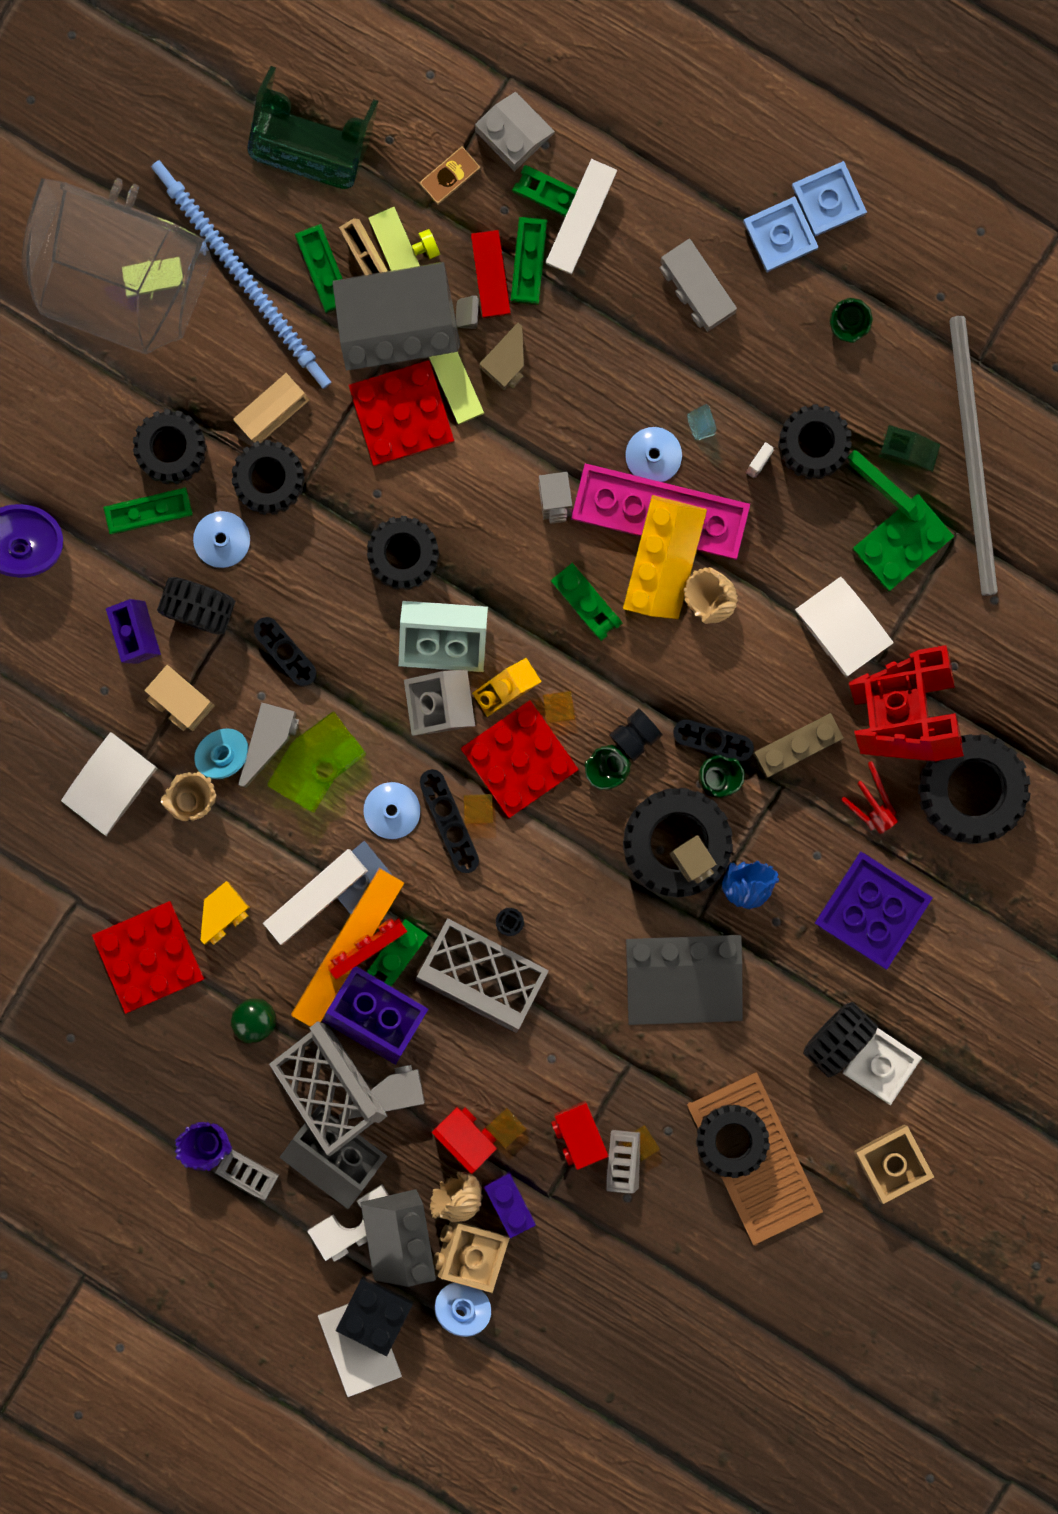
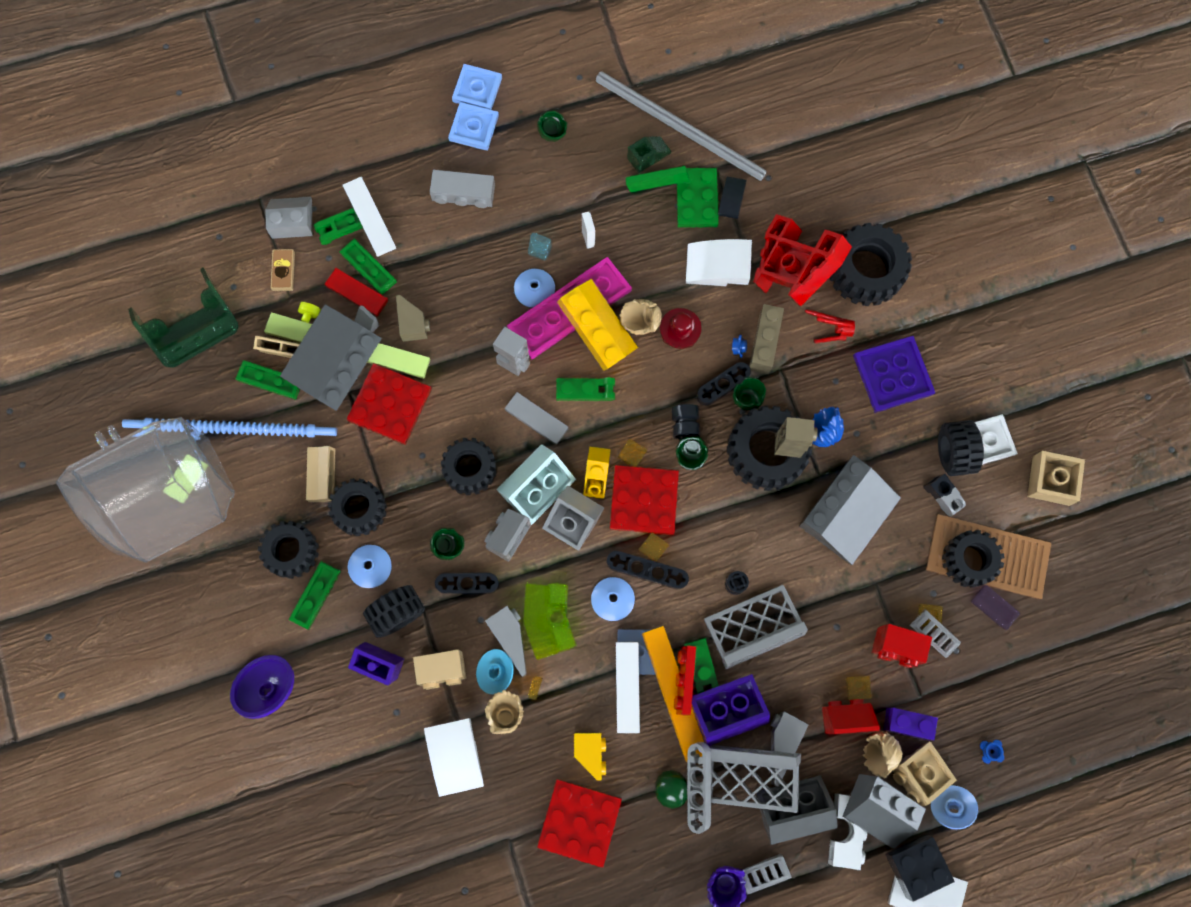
camera: 50 degrees left, 10 degrees down
(239, 806) = (535, 687): none -> clear yellow tile
(273, 1040) = (702, 788): none -> light grey beam
(306, 598) = (446, 544): none -> dark green hair
(366, 651) = (508, 534): none -> light grey slope
(513, 577) = (536, 418): none -> light grey tile
(551, 1300) = (998, 753): none -> blue plate
(705, 1204) = (995, 607): none -> clear purple tile
(736, 646) = (680, 328): none -> dark red plate
(767, 724) = (739, 346): none -> blue plate
(782, 1063) = (945, 494): none -> leg
(826, 420) = (606, 181): black tyre -> none
(932, 581) = (732, 197): none -> black slope

